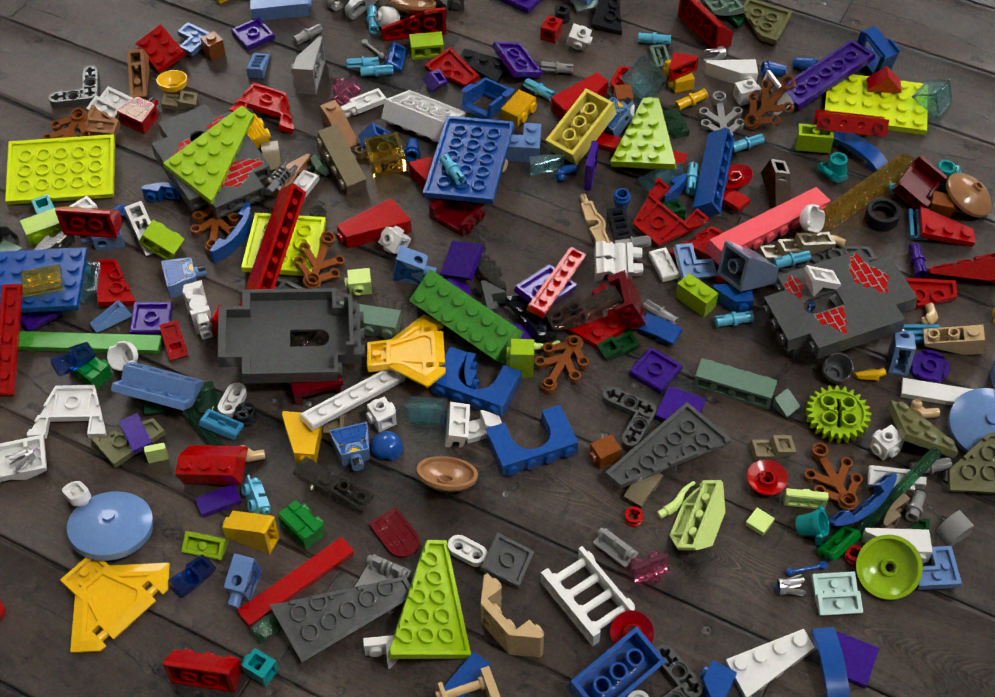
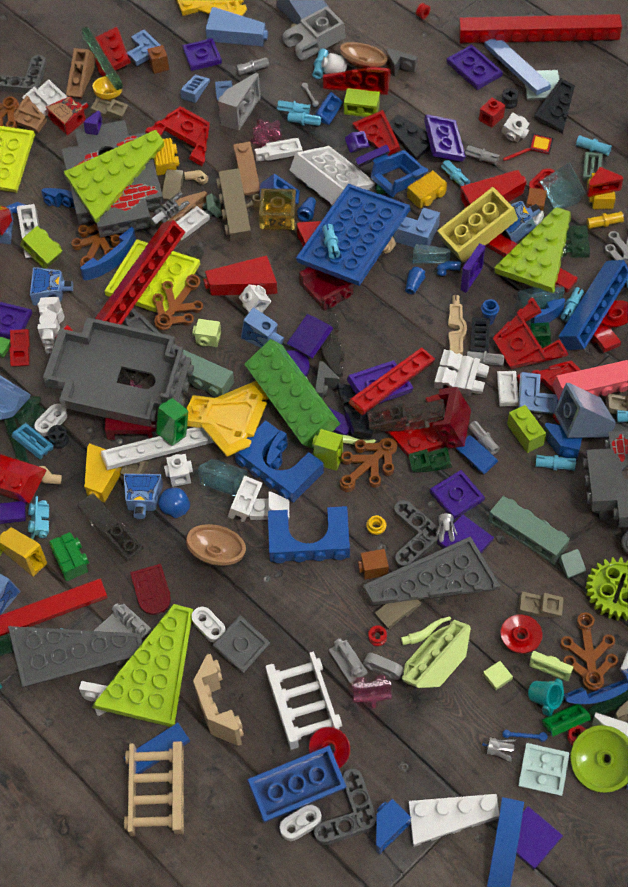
camera: 20 degrees right, 5 degrees up
(157, 55) = (102, 58): none -> clear green axle
(176, 113) = (93, 123): none -> dark purple slope
(287, 59) = (221, 87): none -> medium blue tile
(293, 143) = (197, 175): none -> tan arm
(362, 368) = (172, 421): none -> green brick
(457, 88) = (369, 157): none -> dark purple tile
(539, 187) = (414, 280): none -> blue cone
(592, 412) = (376, 520): none -> yellow plate
(603, 47) = (538, 143): none -> piece
(651, 542) = (383, 666): none -> light grey beam
(657, 395) = (446, 524): none -> flat silver piece

